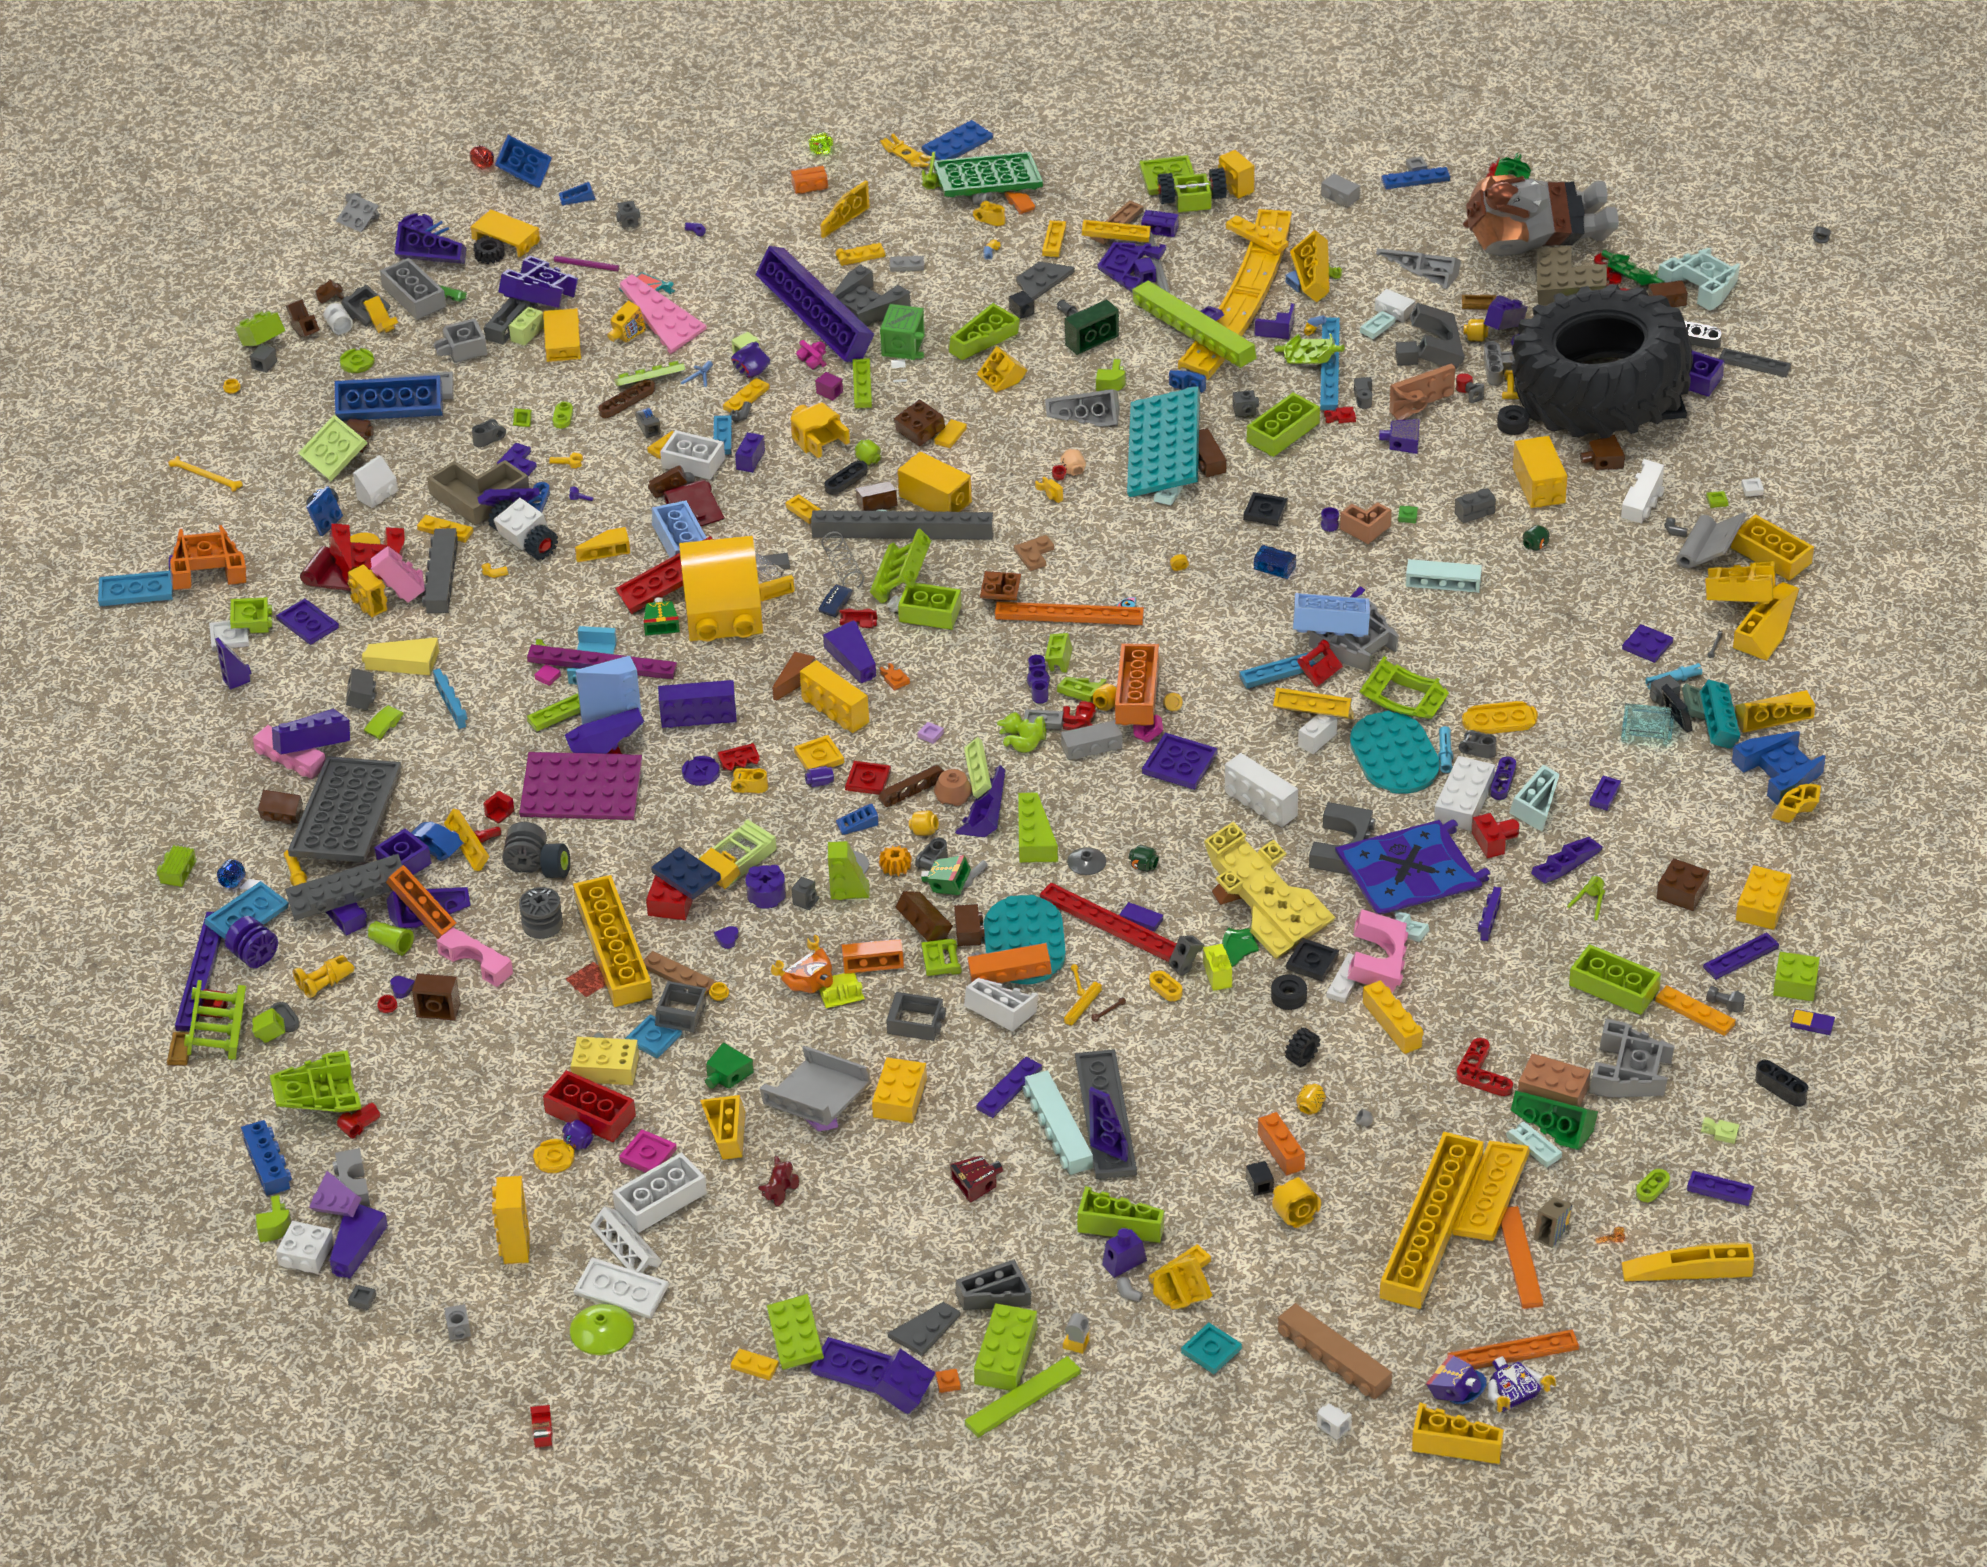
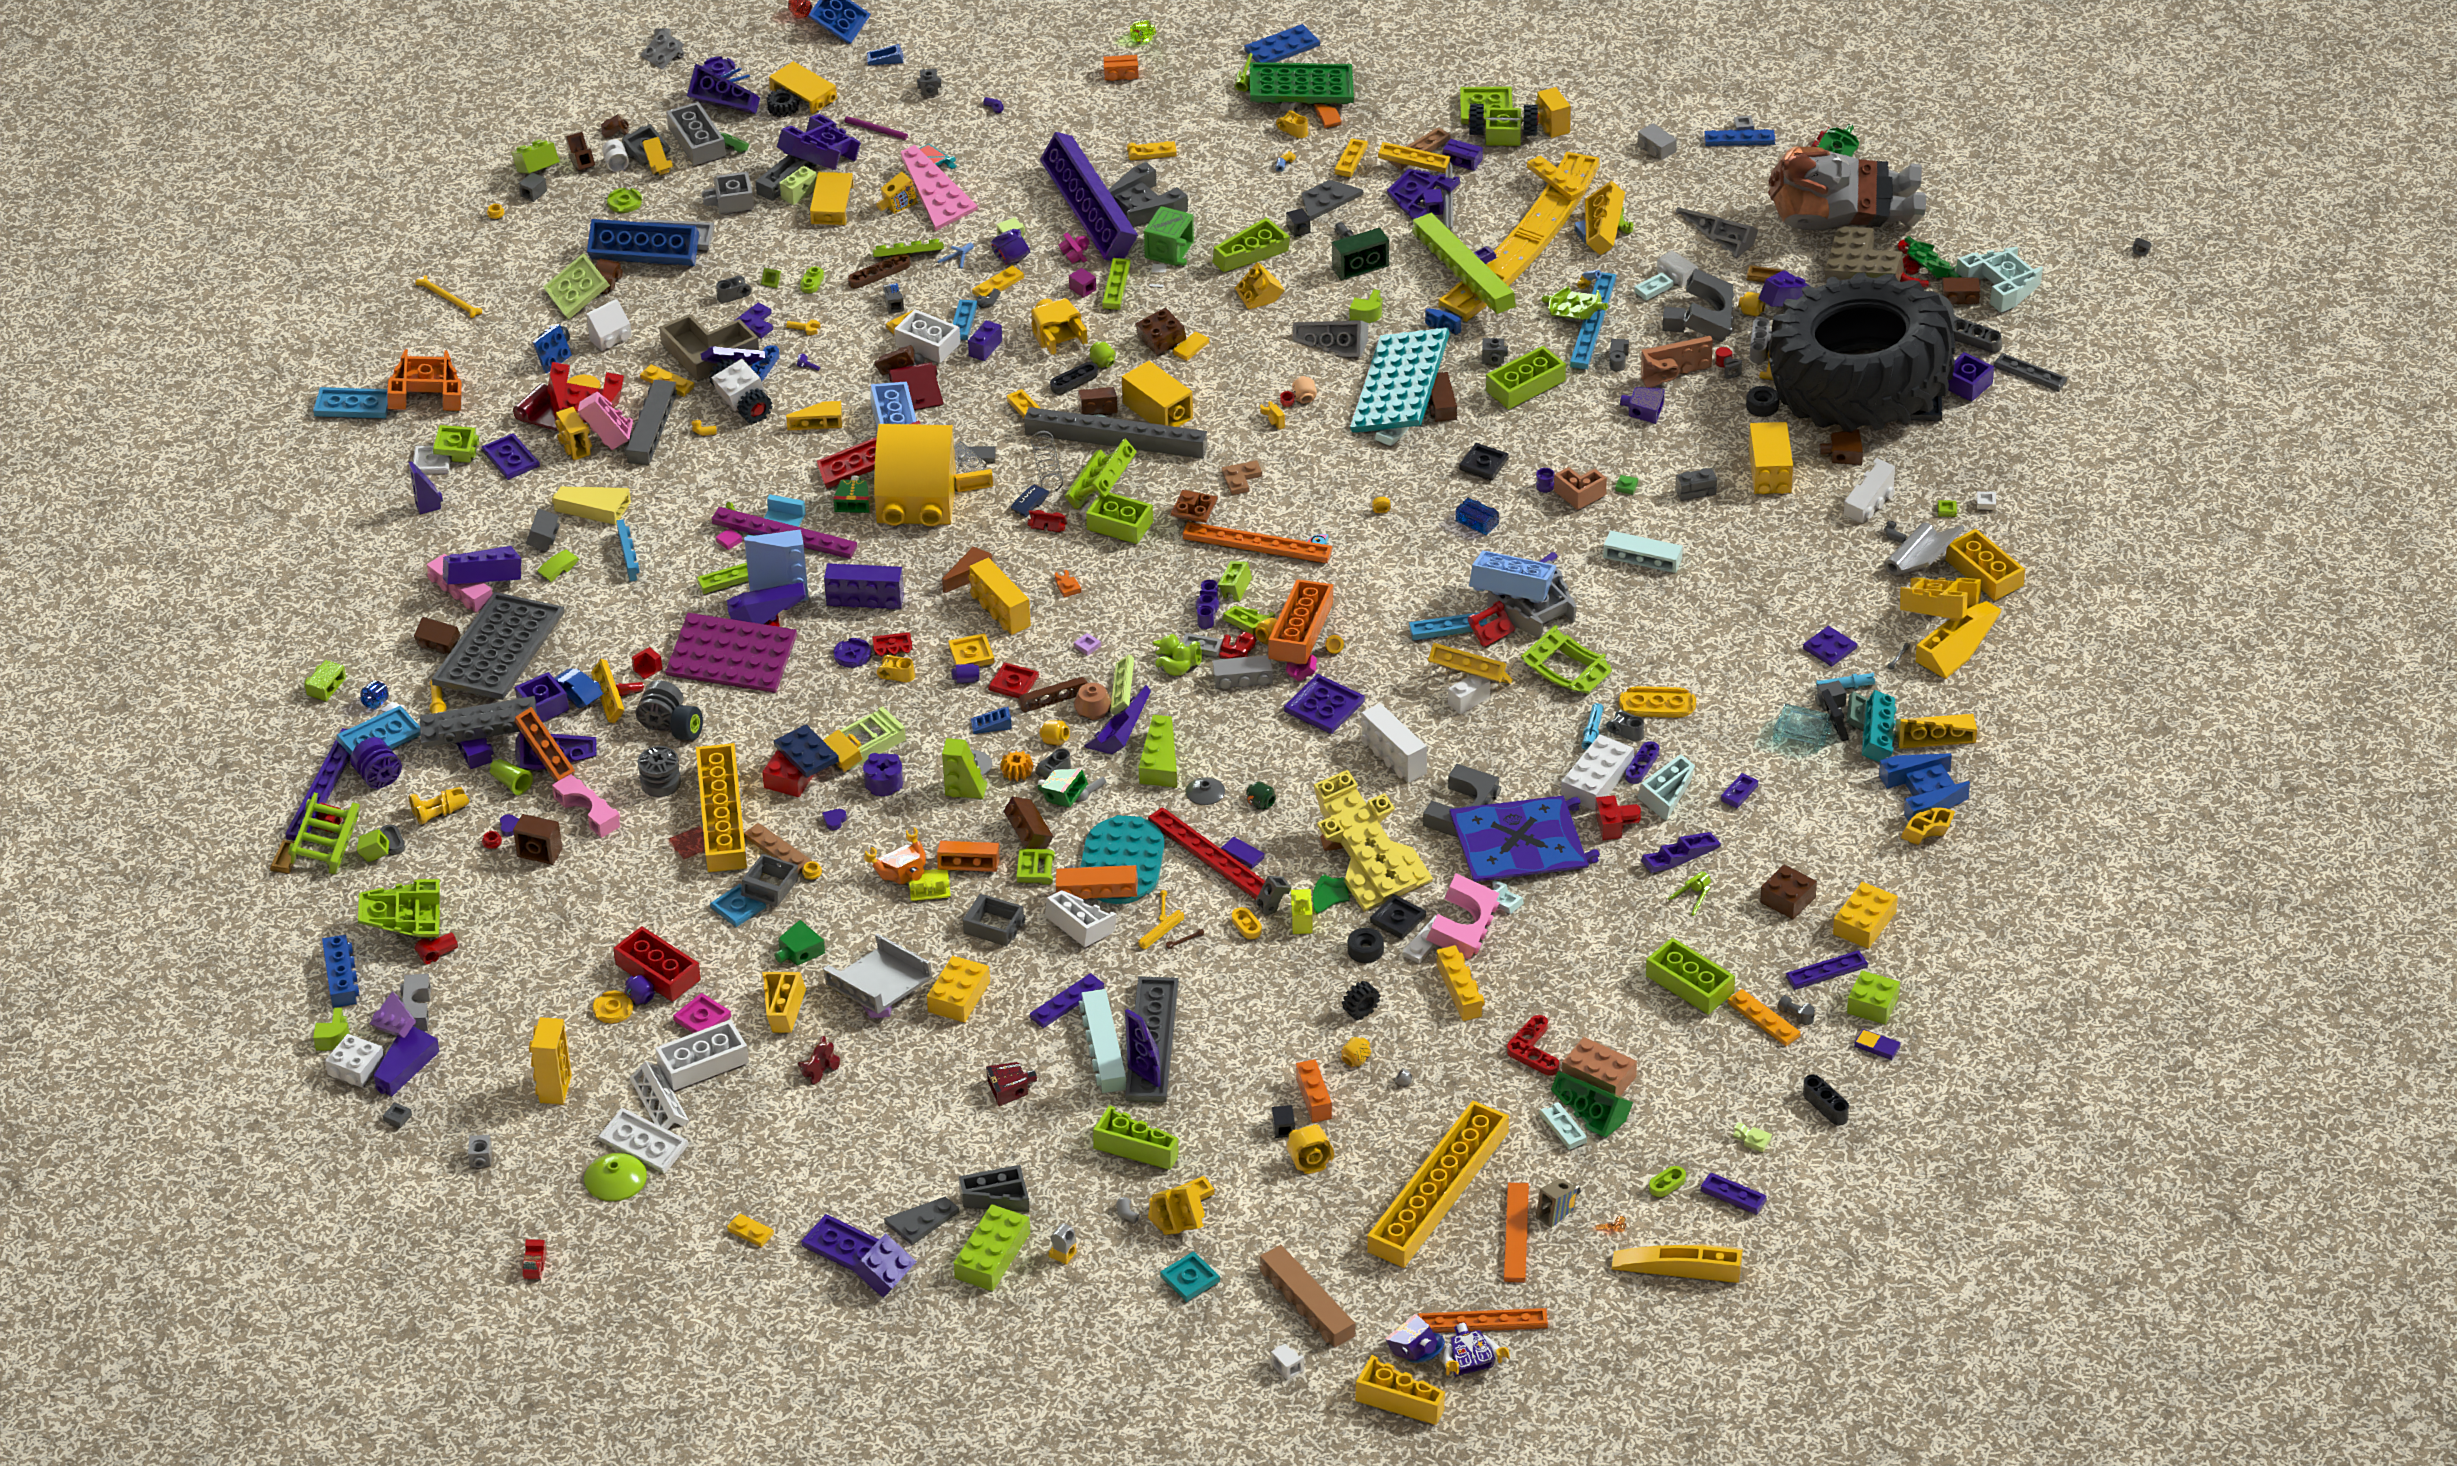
camera: 10 degrees right, 0 degrees up
(605, 1059) = (684, 921): light yellow piece -> none
(795, 1331) = (795, 1204): lime plate -> none
(804, 893) = (919, 786): dark grey brick -> none
(847, 208) = (1149, 102): yellow wedge -> none
(851, 651) = (1030, 552): dark purple slope -> none
(907, 263) = (1195, 166): light grey plate -> none
(912, 158) = (1223, 44): yellow piece -> none
(948, 1380) = (929, 1271): orange plate -> none
(968, 925) = (1070, 838): reddish brown brick -> none
(1022, 1396) = (996, 1296): lime tile -> none
(1123, 1252) = (1129, 1173): dark purple torso -> none
(1277, 328) = (1551, 278): dark purple panel -> none
(1342, 414) = (1590, 375): red plate -> none
(1394, 752) = (1541, 723): teal plate -> none
(1489, 913) = (1587, 895): dark purple plate -> none
(1491, 1190) = (1506, 1164): yellow plate -> none
(1536, 537) = (1748, 524): dark green head -> none
(1636, 1063) = (1685, 1061): light grey wedge -> none

